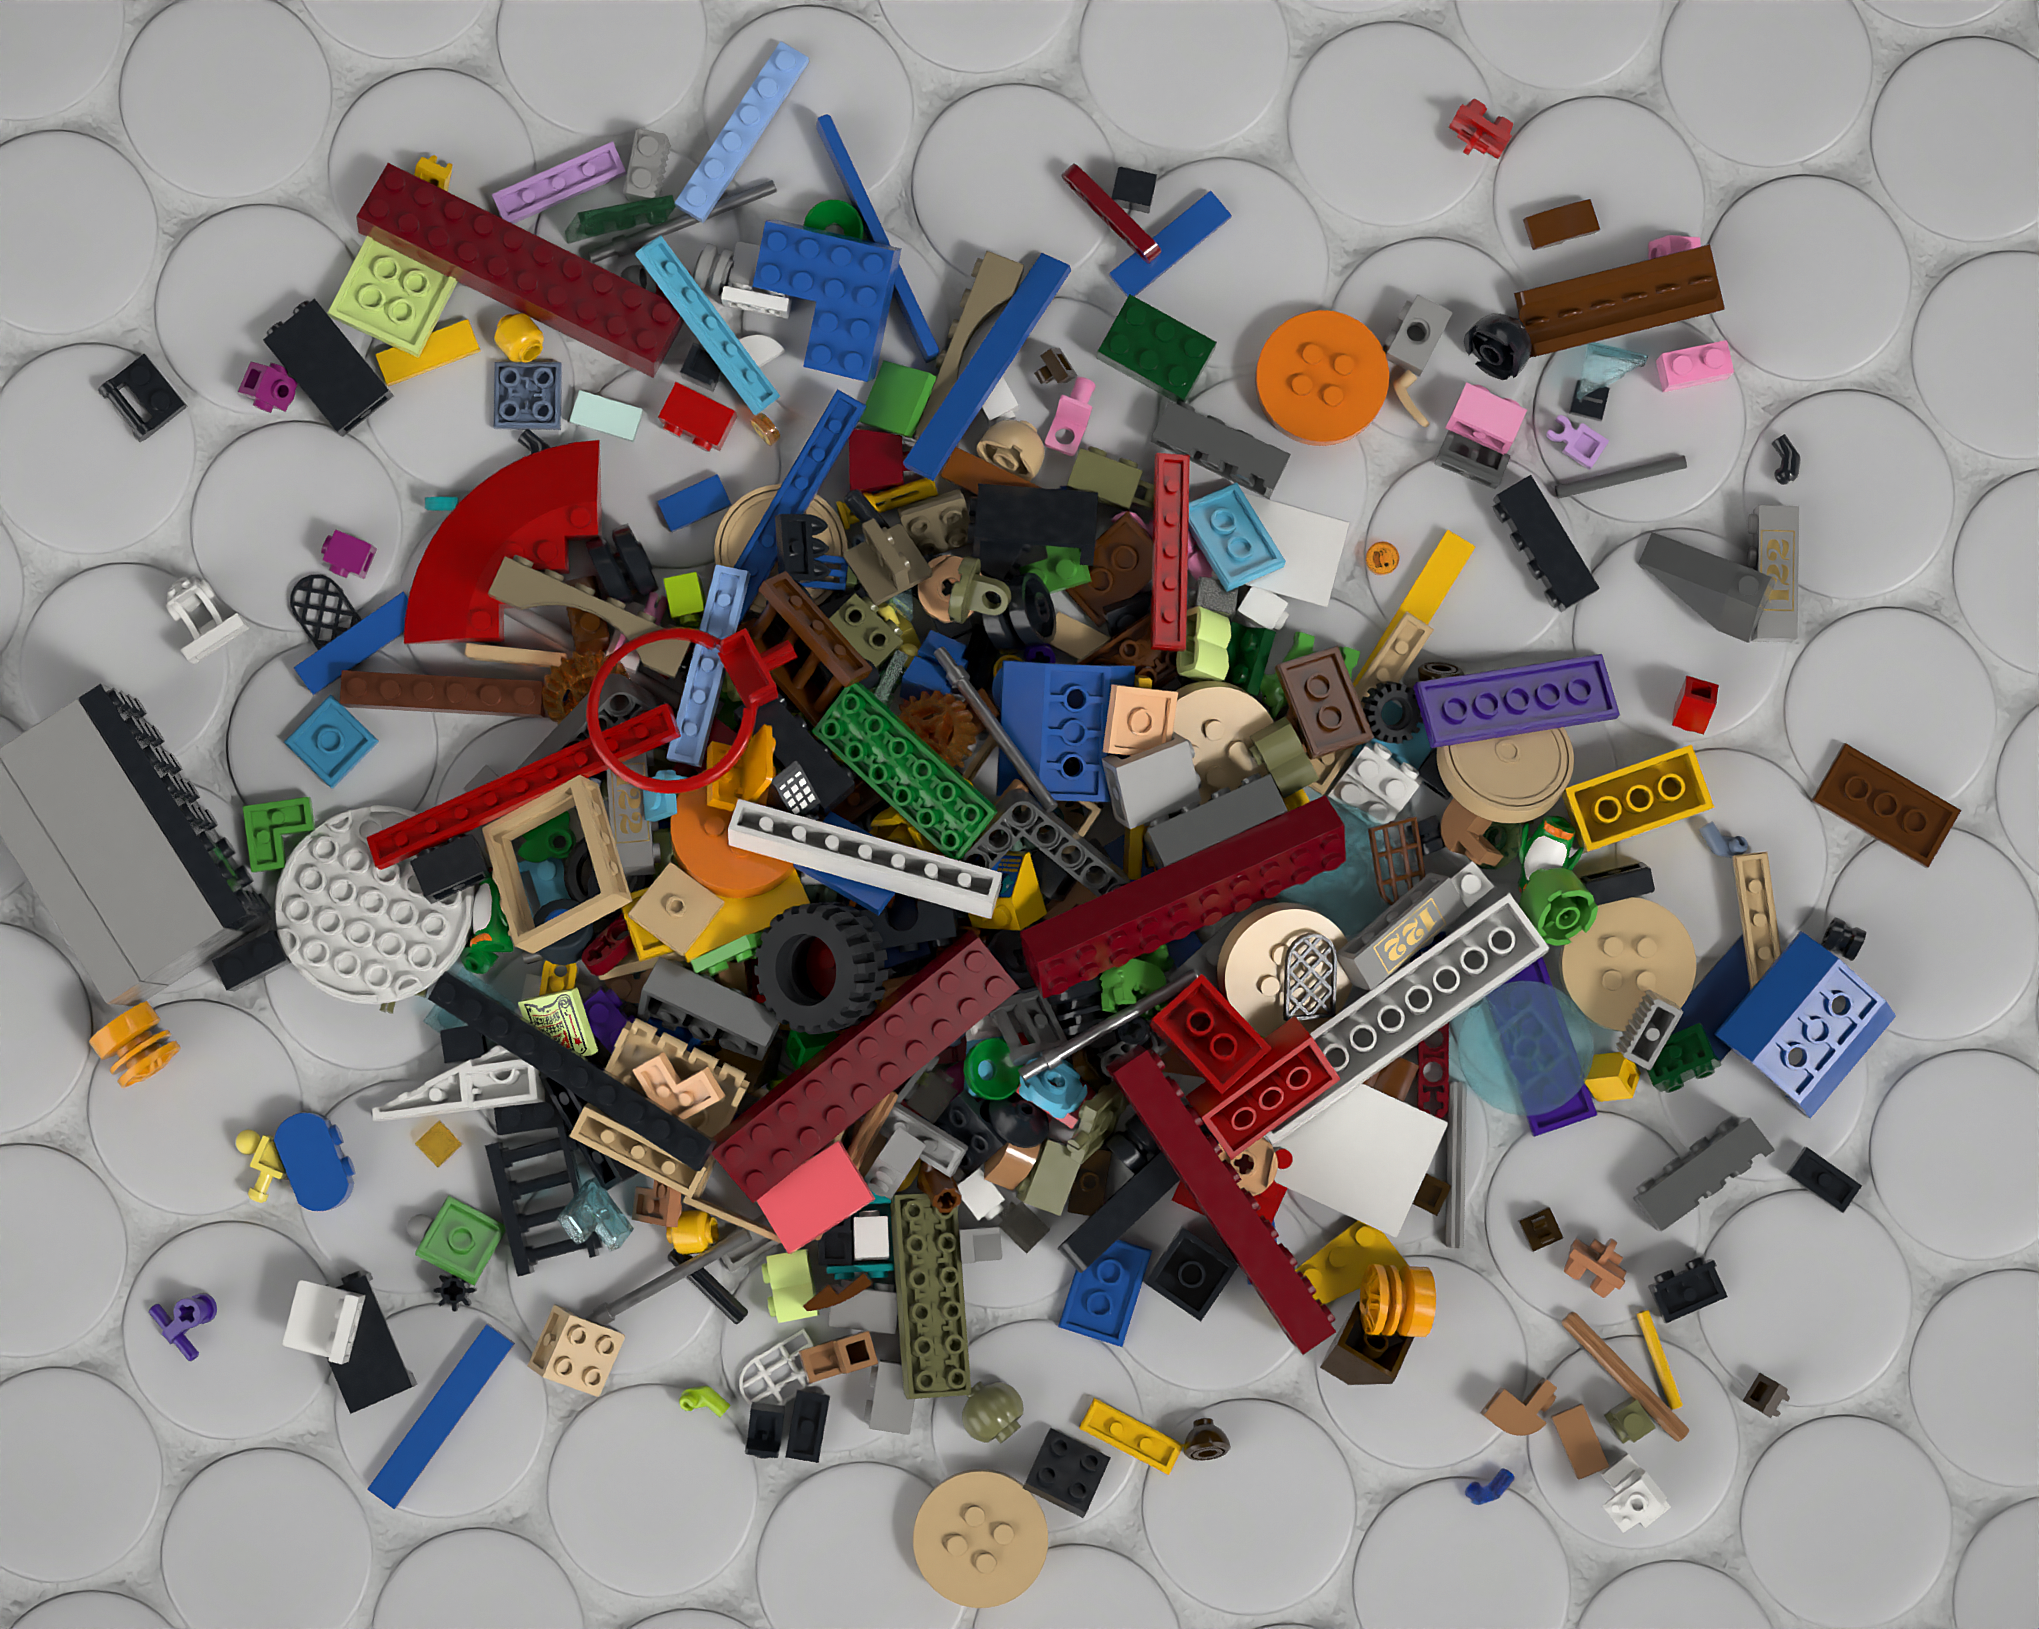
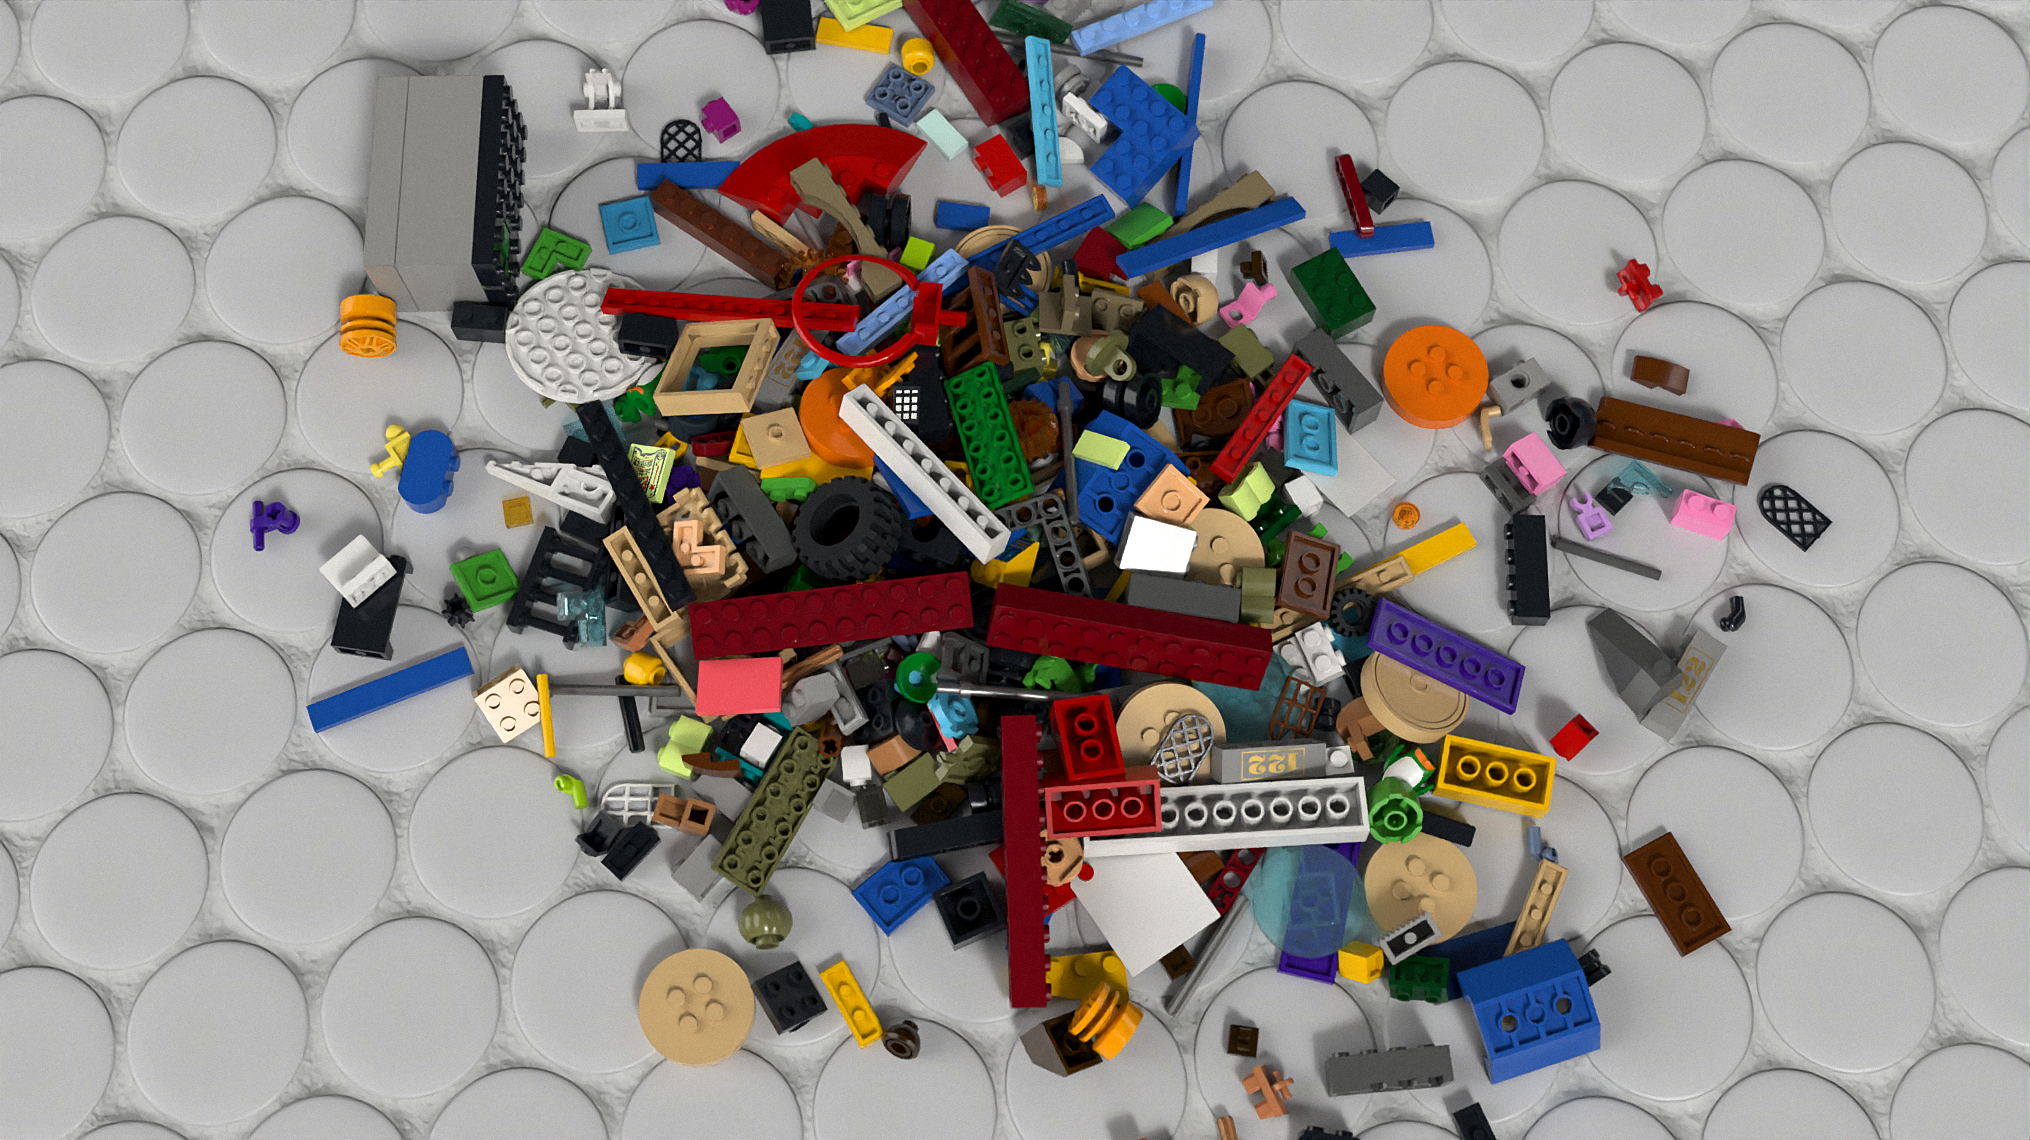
camera: 30 degrees right, 15 degrees down
(624, 1343) = (546, 715): none -> yellow bar
(1033, 713) = (1101, 449): none -> yellowish green tile
(1775, 324) = (1792, 537): none -> black window

